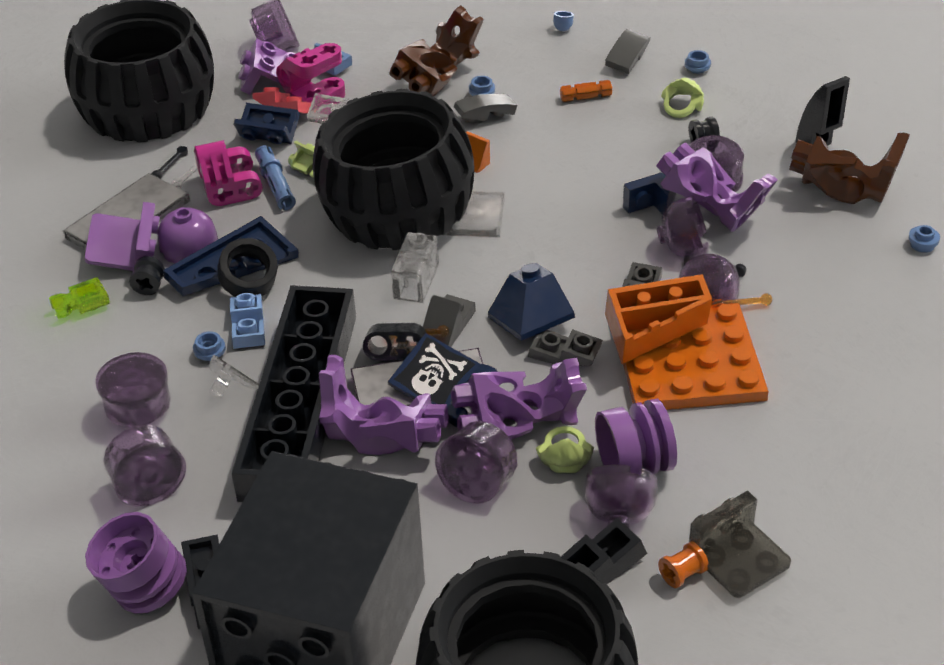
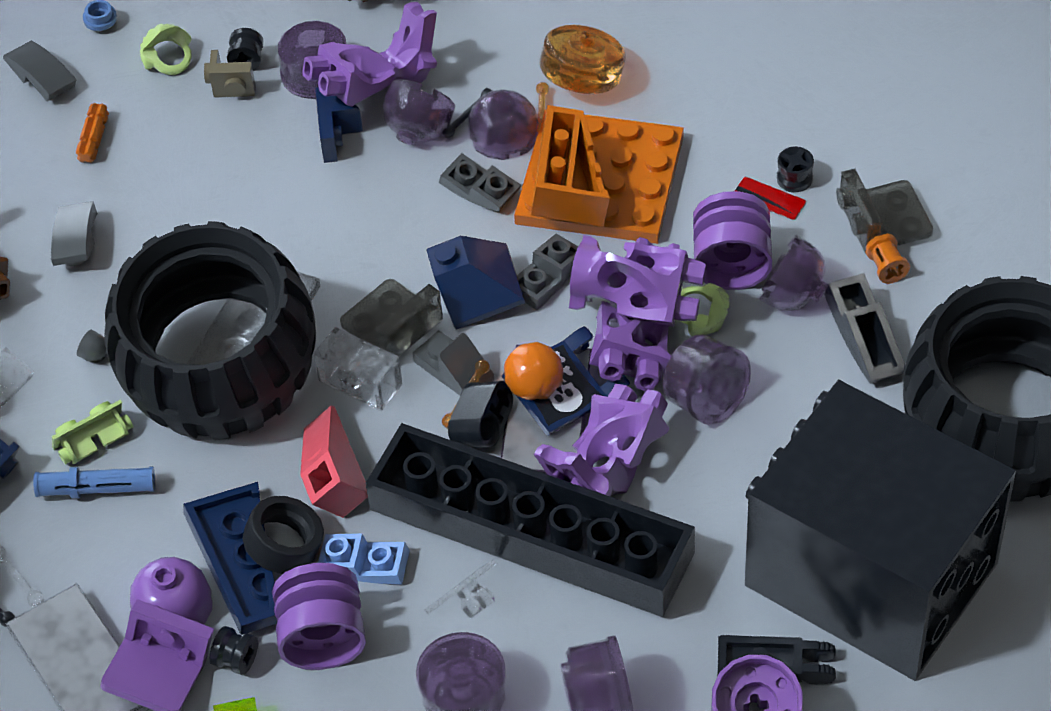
camera: 70 degrees left, 10 degrees up
(179, 297) = (318, 616): none -> medium lavender wheel
(207, 345) = (393, 596): medium blue plate -> none
(219, 170) = (65, 526): dark pink piece -> none
(319, 272) = (330, 466): none -> coral slope
(432, 348) = (533, 371): none -> orange hair
(472, 275) = (394, 316): none -> clear smoke bracket
(481, 85) = (25, 229): medium blue plate -> none
(533, 350) = (659, 284): none -> medium lavender hips
(671, 129) = (229, 78): none -> dark tan bracket
(725, 472) = (775, 199): none -> red sticker
(760, 475) = (795, 169): none -> black wheel
(799, 304) = (582, 59): none -> clear orange wheel

